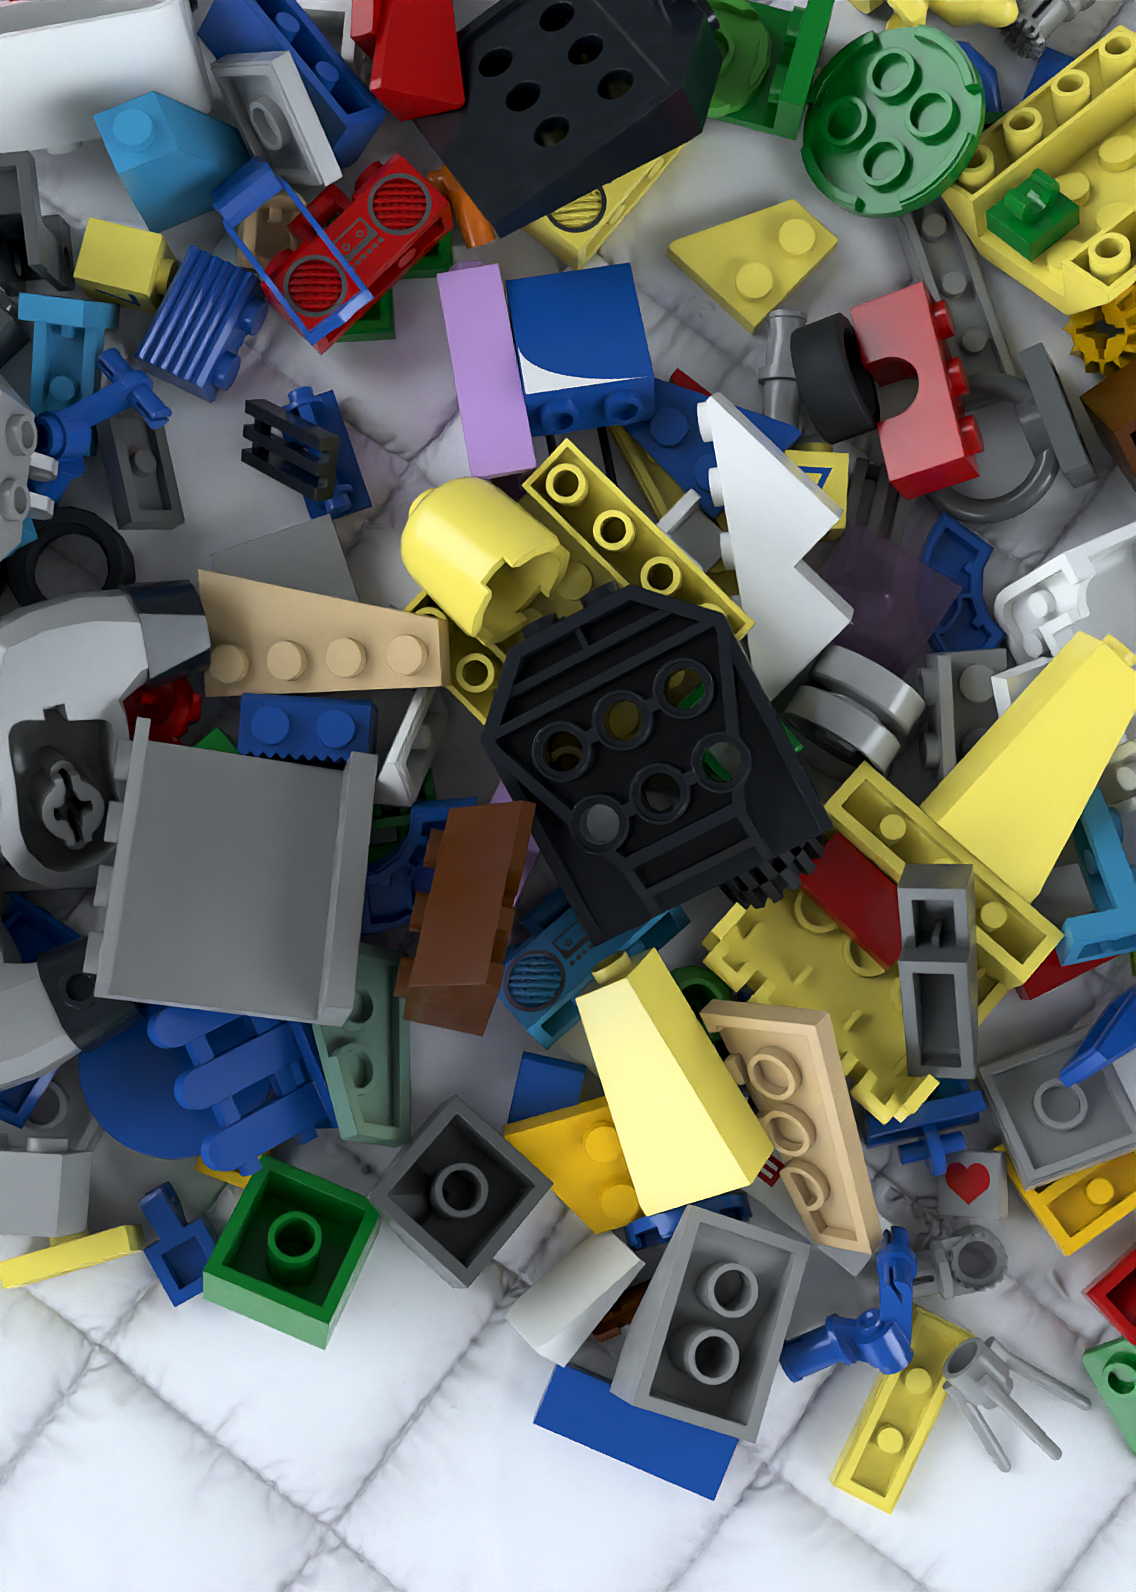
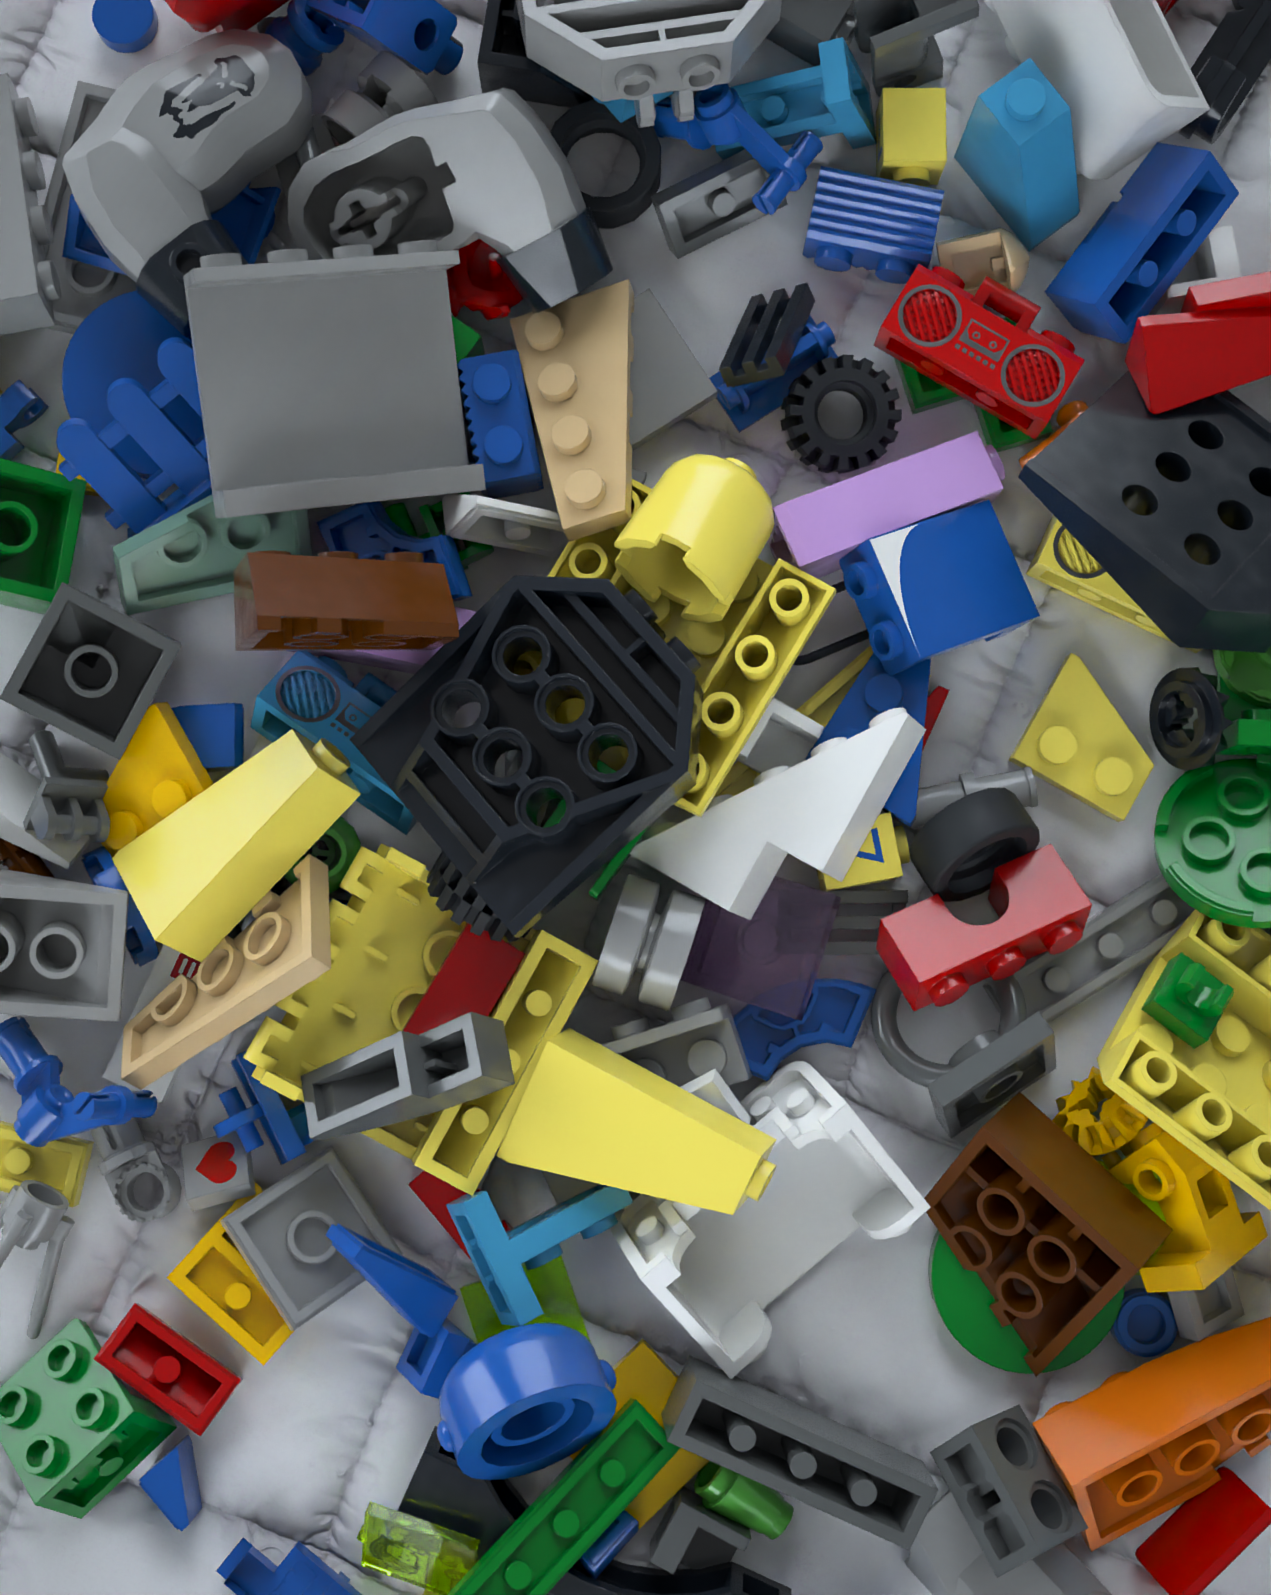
camera: 75 degrees right, 0 degrees up
(244, 194) = (999, 223): blue piece -> none
(276, 116) = (1085, 236): light grey tile -> none
(391, 367) = (877, 406): none -> black tyre
(576, 1242) = (68, 797): none -> dark grey arm
(738, 161) = (1173, 706): none -> black gear

